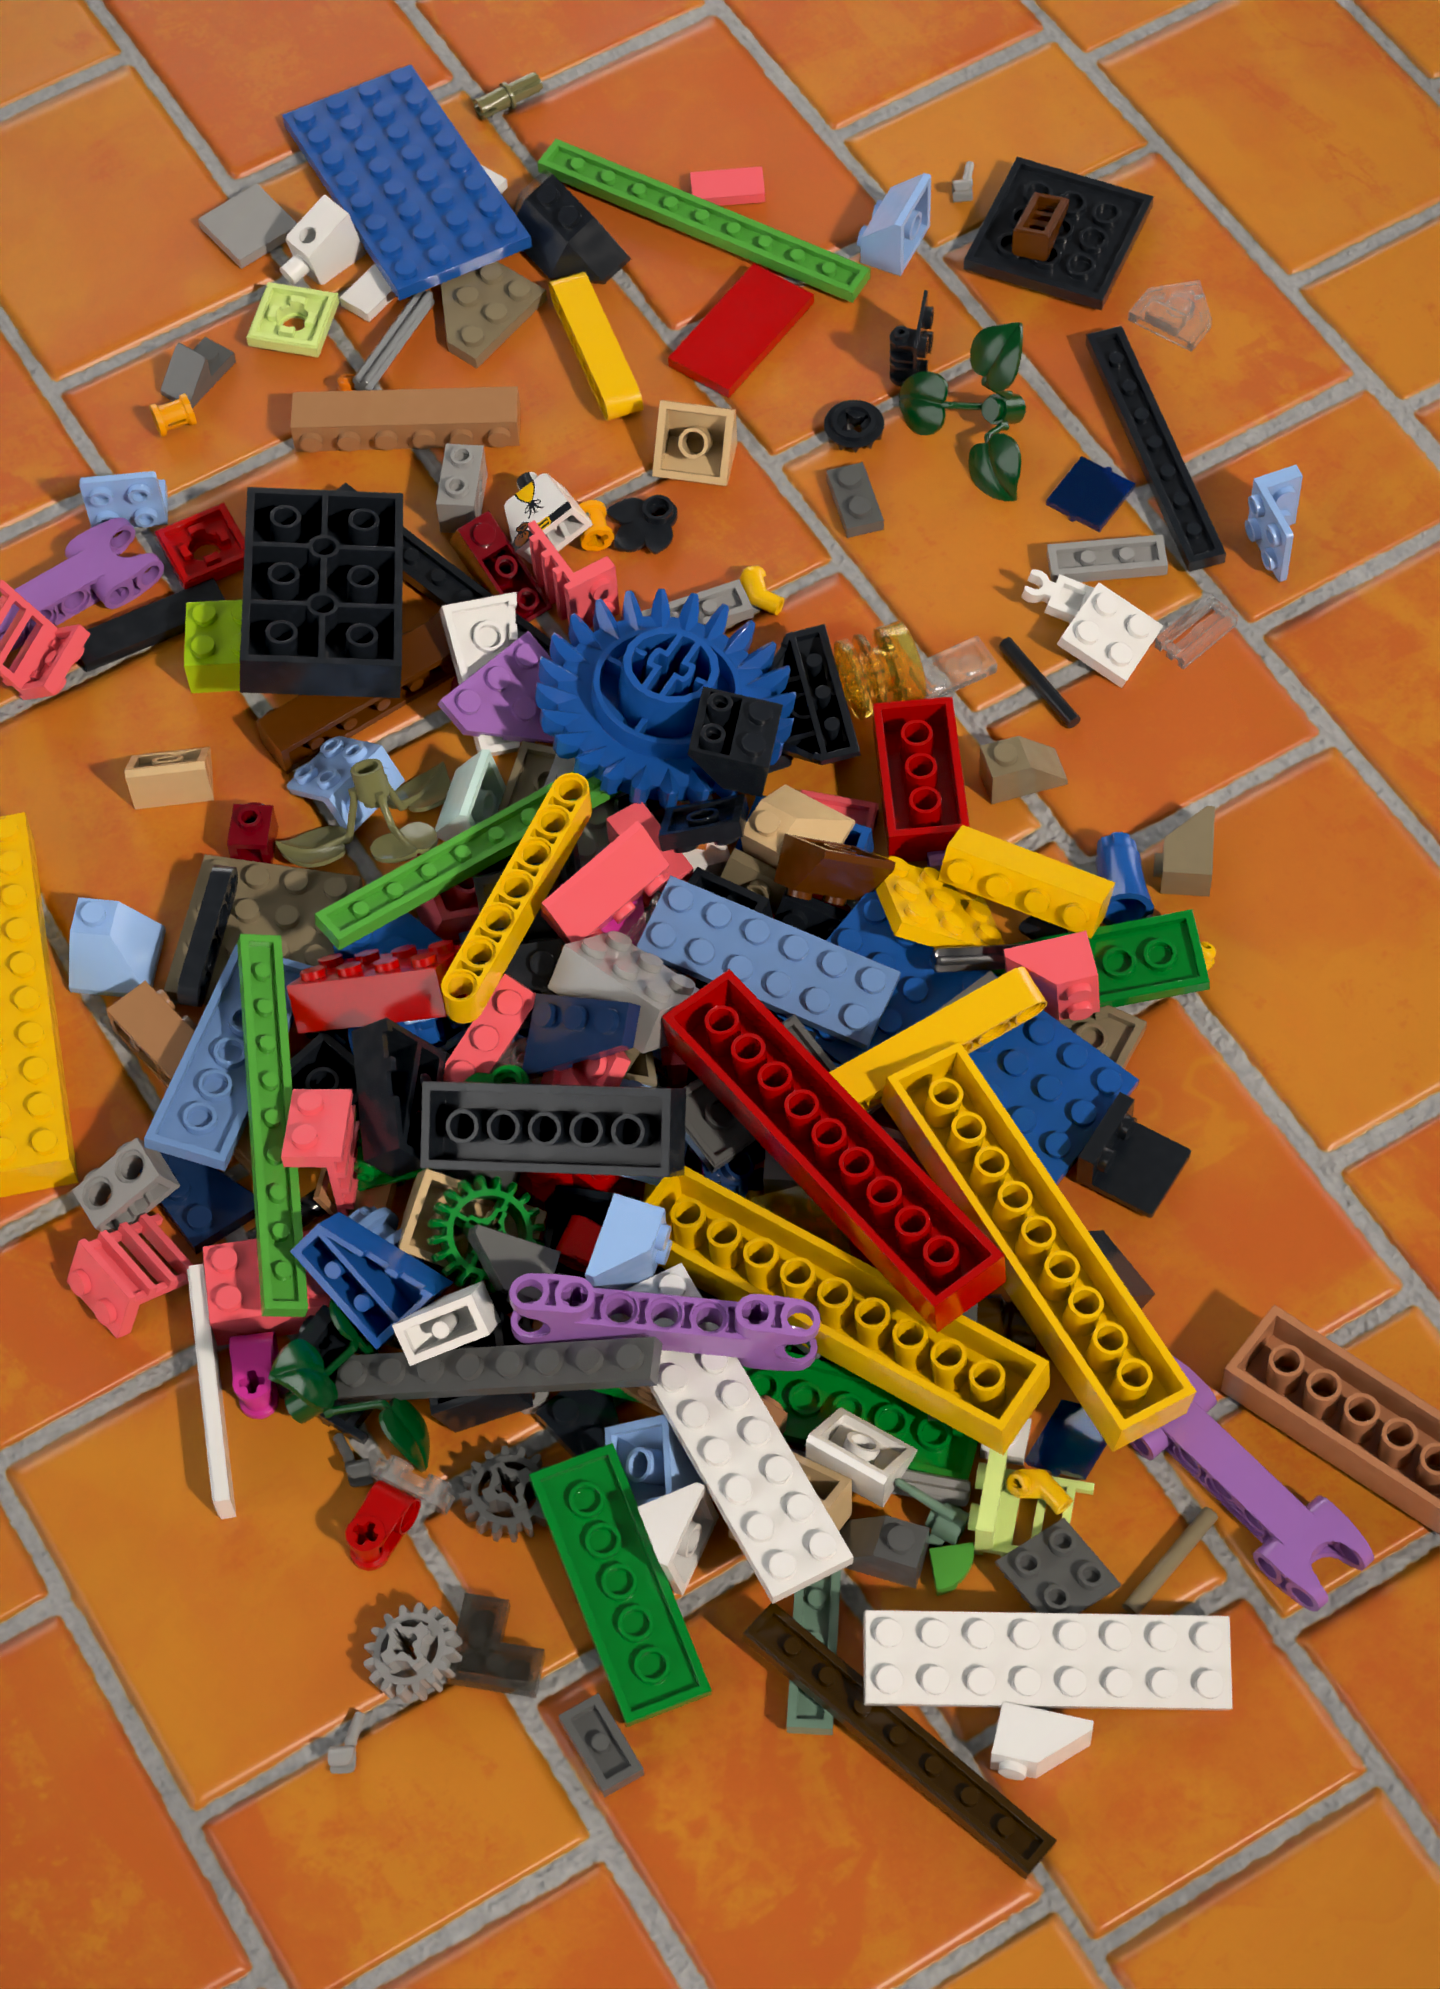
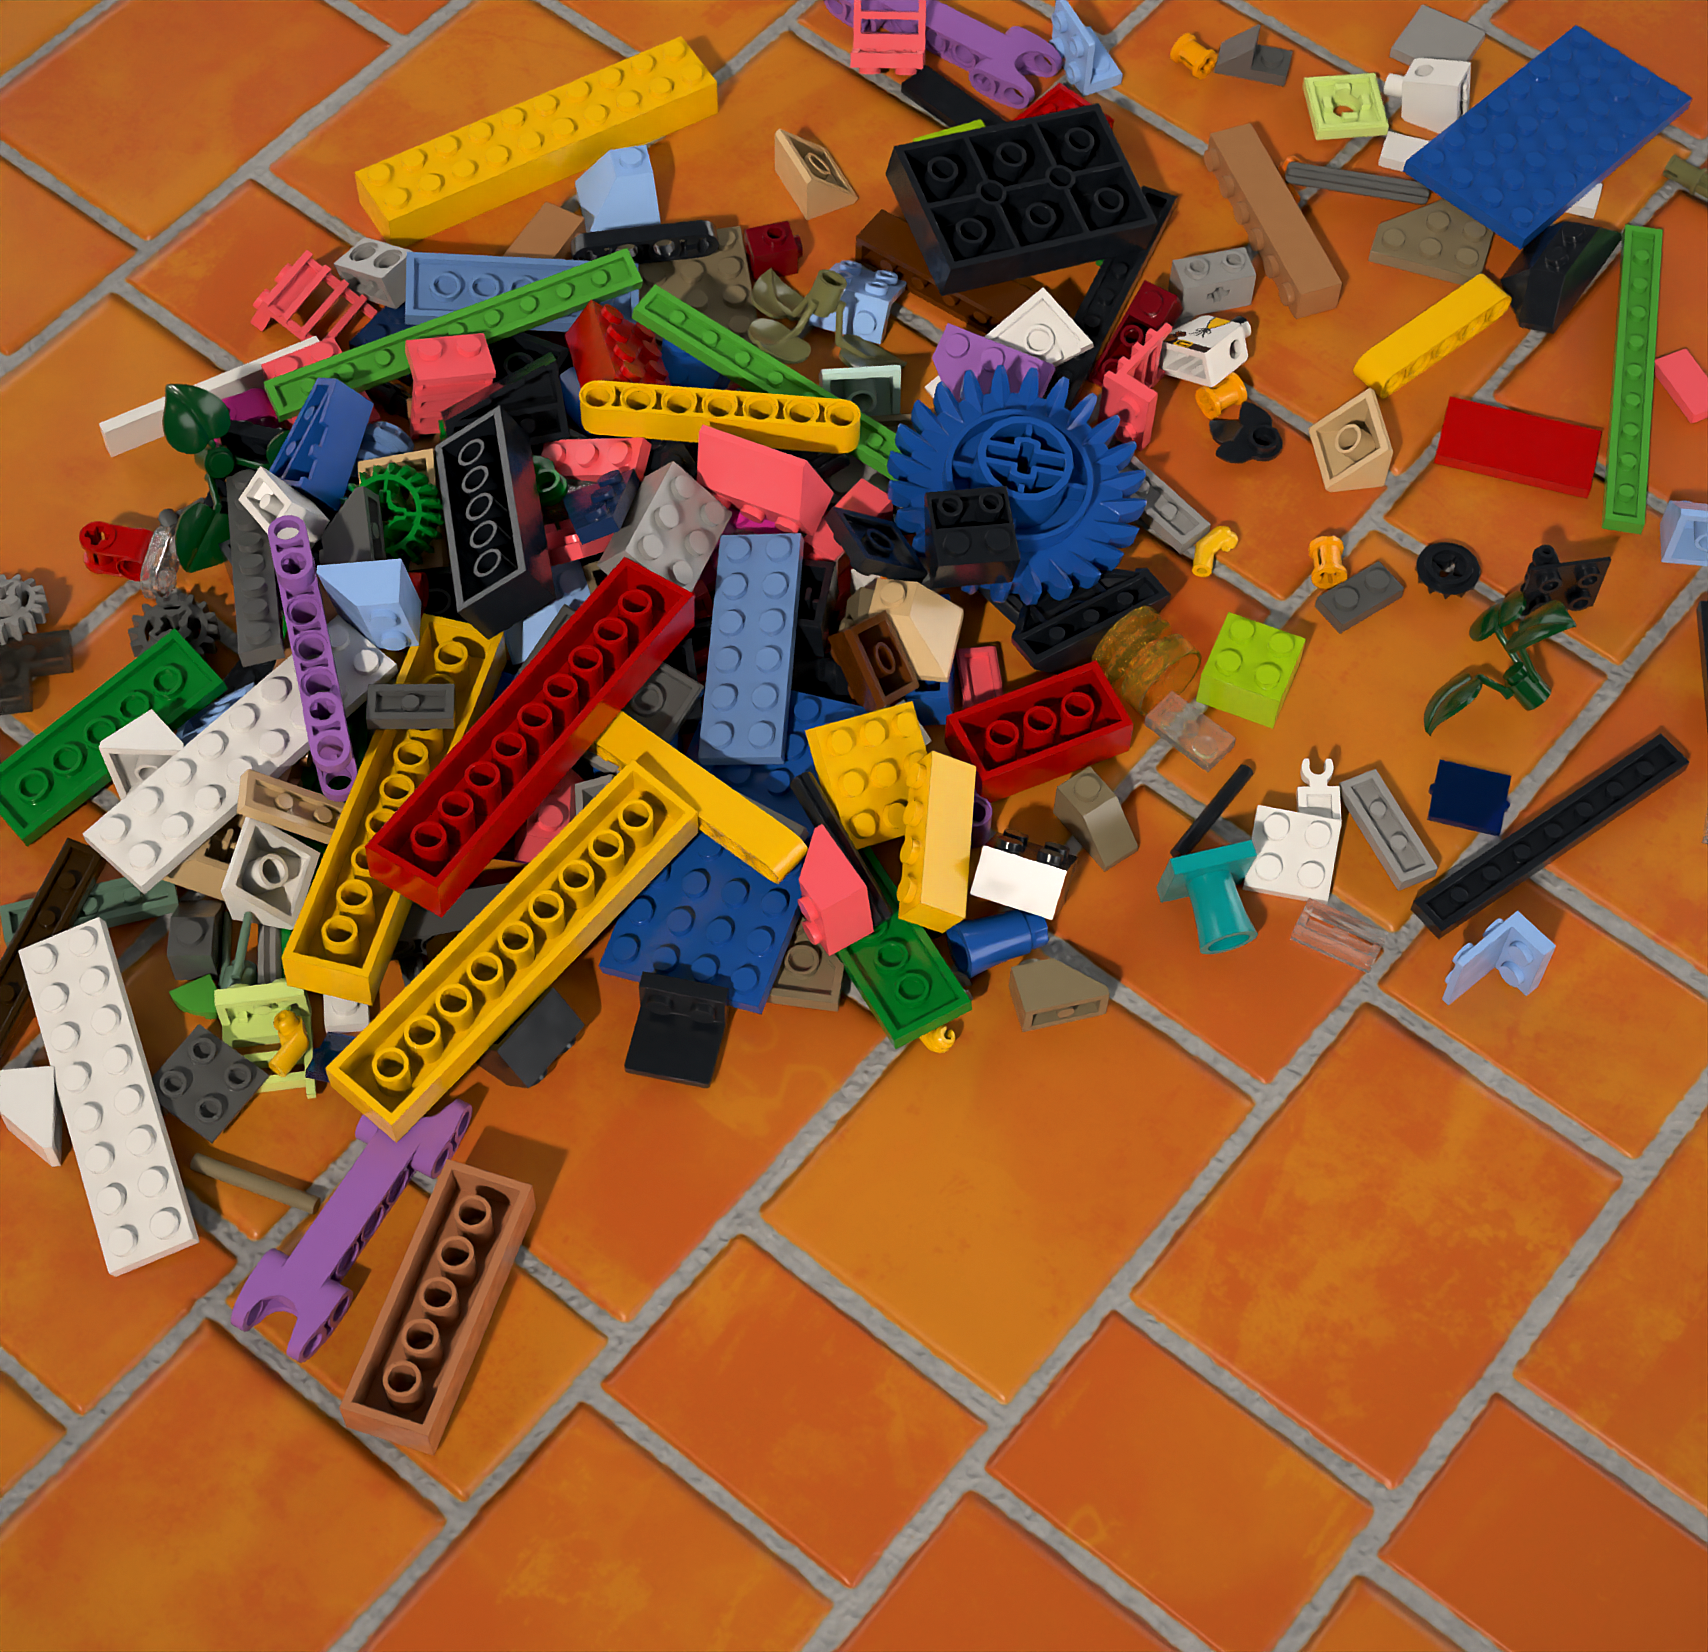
camera: 65 degrees right, 0 degrees up
(751, 1252) = (410, 706): none -> dark grey plate
(802, 504) = (1327, 562): none -> light orange bush
(809, 1399) = (287, 806): none -> tan plate
(913, 592) = (1250, 670): none -> lime brick
(1078, 825) = (1024, 874): none -> brick
(1139, 699) = (1210, 884): none -> teal plant

